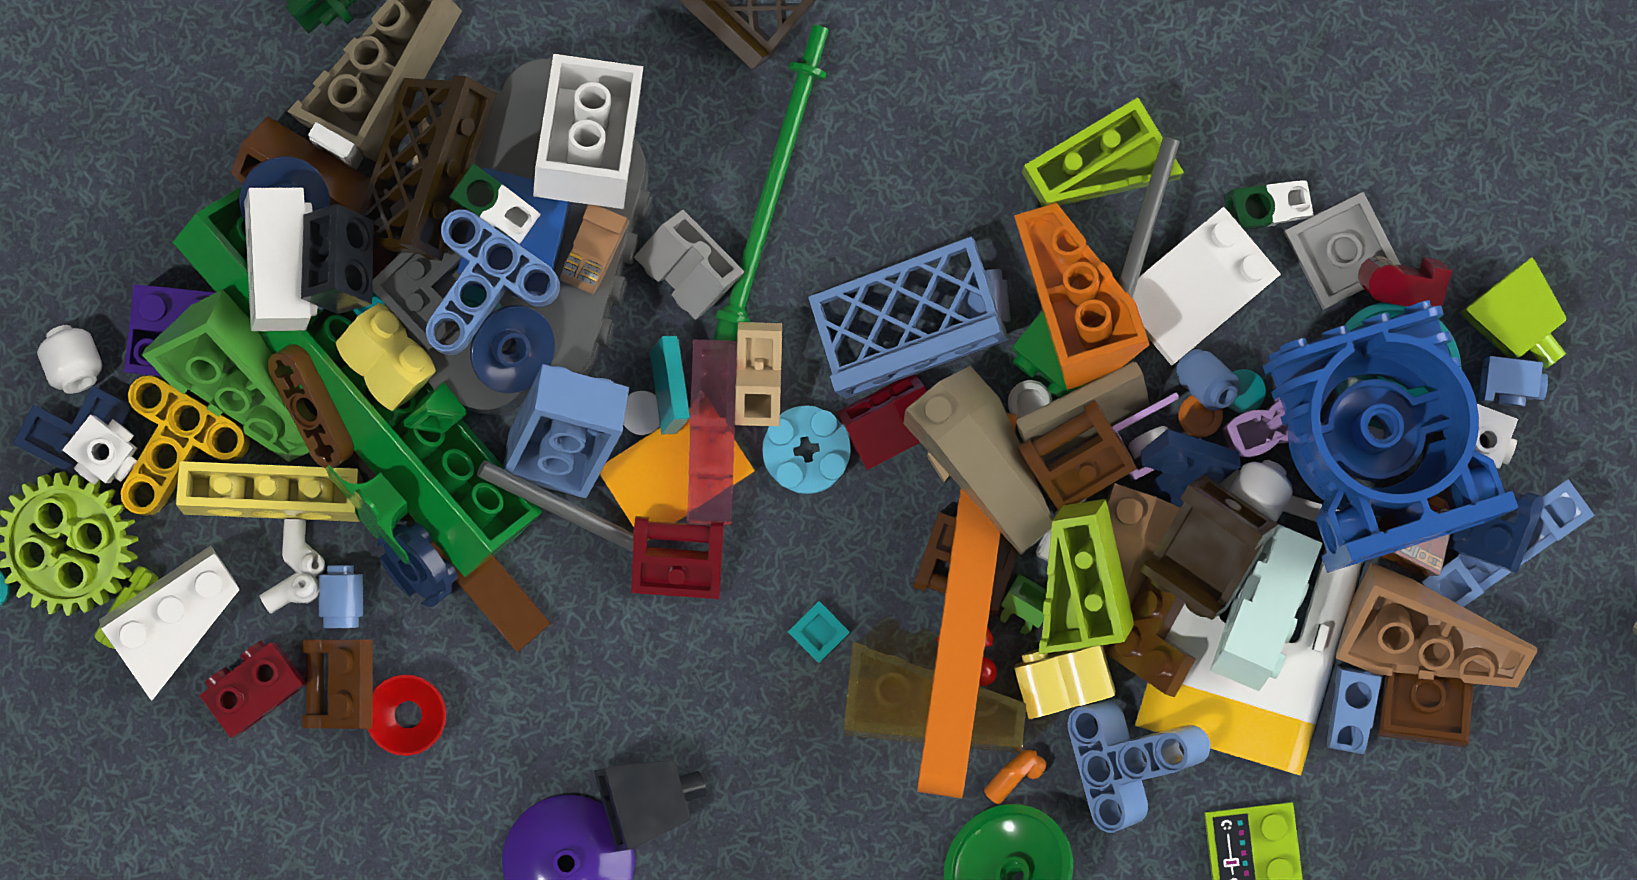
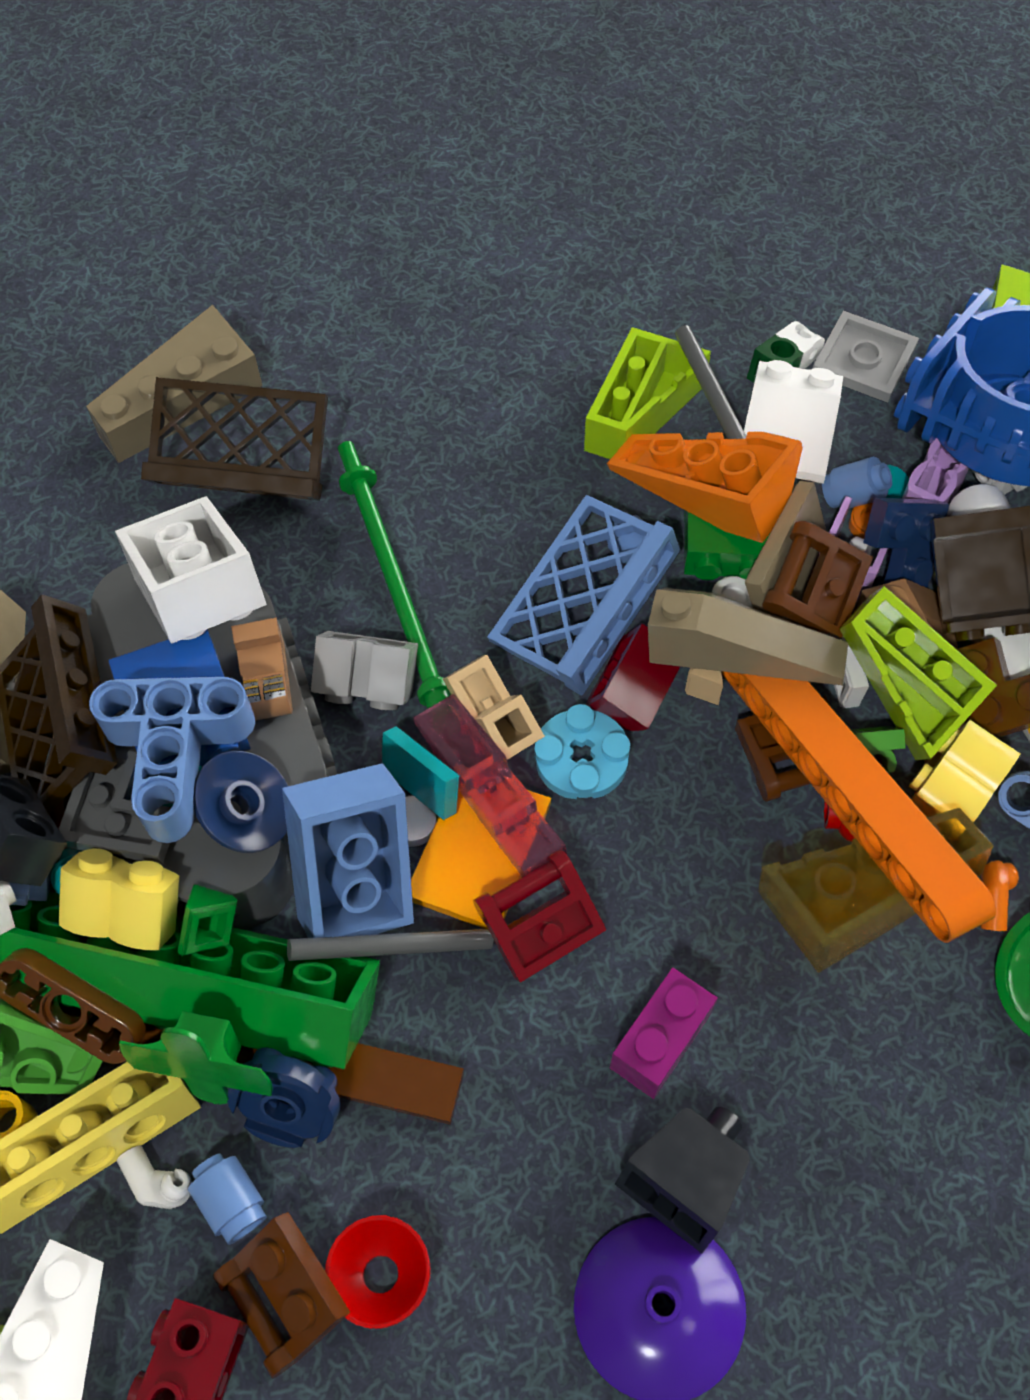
camera: 35 degrees left, 25 degrees down
(296, 589) = (177, 1220): white arm -> none
(494, 204) = (131, 659): leg -> none
(698, 700) = (662, 1033): none -> magenta brick
(818, 632) = (719, 897): teal tile -> none
(1405, 284) = (917, 335): dark red leg -> none

